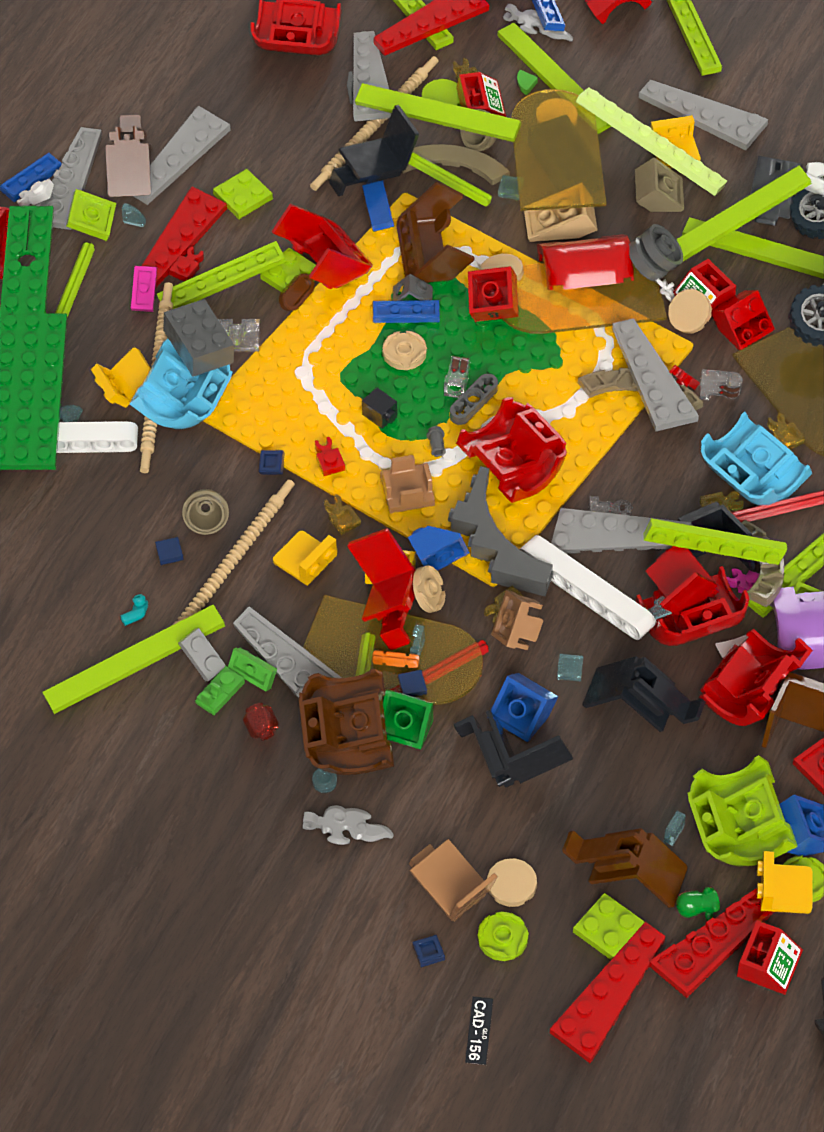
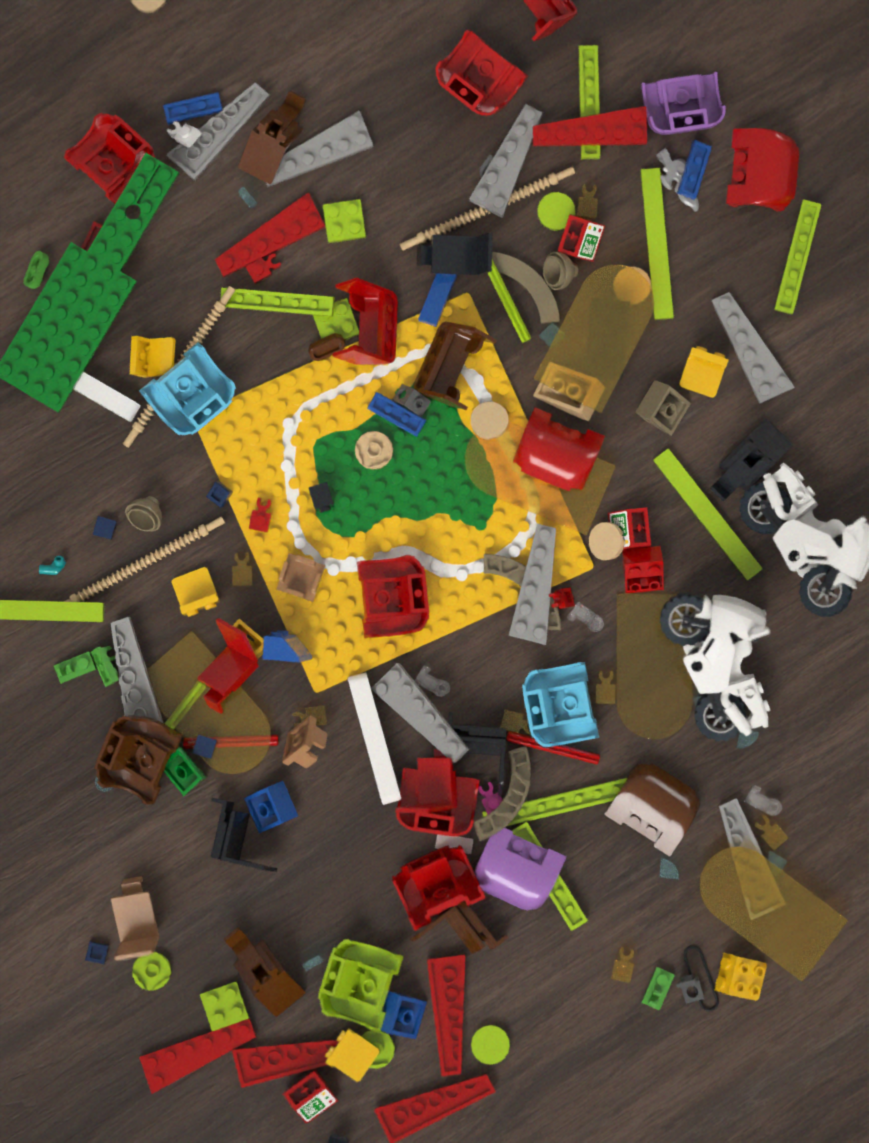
camera: 35 degrees right, 30 degrees up
(70, 413) = (99, 363): clear light blue tile -> none
(75, 278) = (166, 238): lime axle -> none
(91, 214) = (214, 179): lime plate -> none
(144, 288) = (214, 278): dark pink plate -> none
(198, 337) = (216, 367): dark grey brick -> none
(202, 654) = (74, 636): light grey plate -> none
(244, 335) = (258, 364): clear brick -> none
(260, 721) = (85, 713): clear red head -> none
(338, 819) = (104, 824): light grey piece -> none
(395, 659) = (206, 719): orange axle -> none
(419, 634) = (228, 715): clear light blue tile -> none
(428, 589) = (261, 676): tan tile -> none
(435, 435) = (345, 549): dark grey pin -> none
(439, 112) = (529, 243): lime tile -> none
(457, 376) = (396, 500): clear leg -> none
(472, 408) = (408, 517): dark grey beam -> none
(479, 1030) = (96, 1027): black sticker -> none
(493, 294) = (463, 446): red brick -> none
(507, 563) = (326, 661): dark grey arch -> none
(514, 883) = (181, 935): tan tile -> none
(526, 81) = (631, 234): bright green tile -> none
(570, 667) = (325, 792): clear light blue tile -> none
(644, 690) = (354, 847): black piece -> none
(651, 141) = (682, 363): yellowish green plate -> none
(655, 252) = (609, 480): dark grey wheel -> none
(657, 611) = (409, 791): clear light blue tile -> none
(666, 289) = (604, 508): white plant -> none
(693, 903) = (289, 1025): green animal -> none
(715, 541) = (464, 773): lime plate -> none
(743, 212) = (691, 478): lime tile -> none

